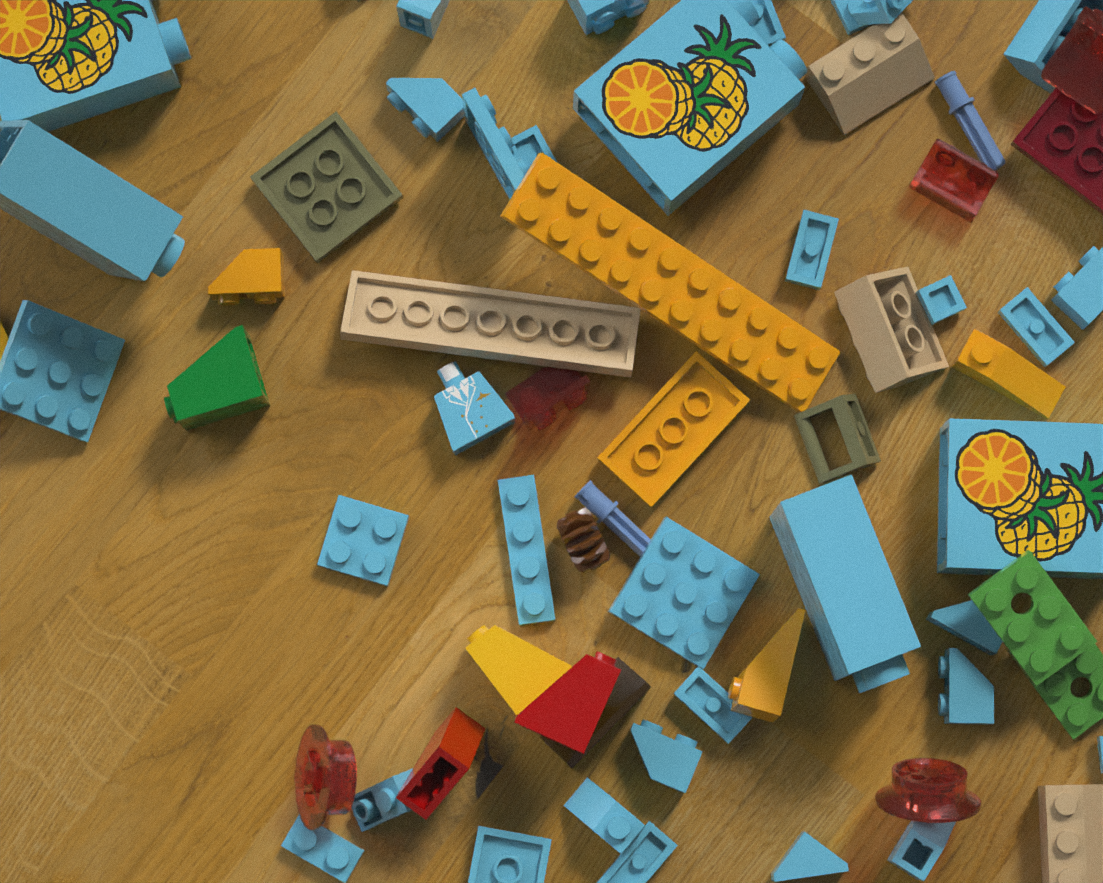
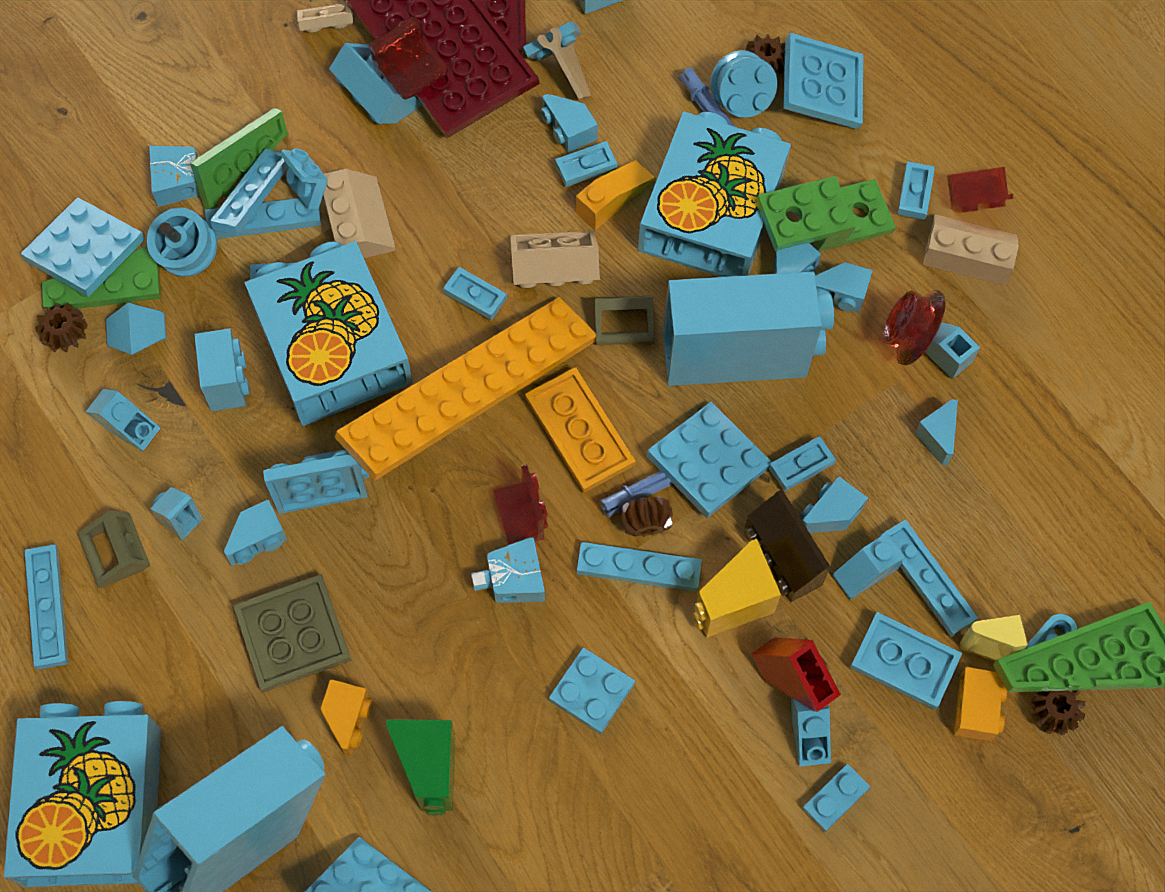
camera: 75 degrees left, 15 degrees down
(323, 777) = (781, 773): clear red wheel -> none
(490, 323) = (449, 539): tan plate -> none
(573, 703) = (781, 545): red slope -> none
(765, 680) = (792, 414): light orange slope -> none
(941, 300) = (544, 218): medium azure plate -> none
(954, 180) = (458, 182): clear red bracket -> none
(969, 120) = (418, 162): medium blue axle -> none

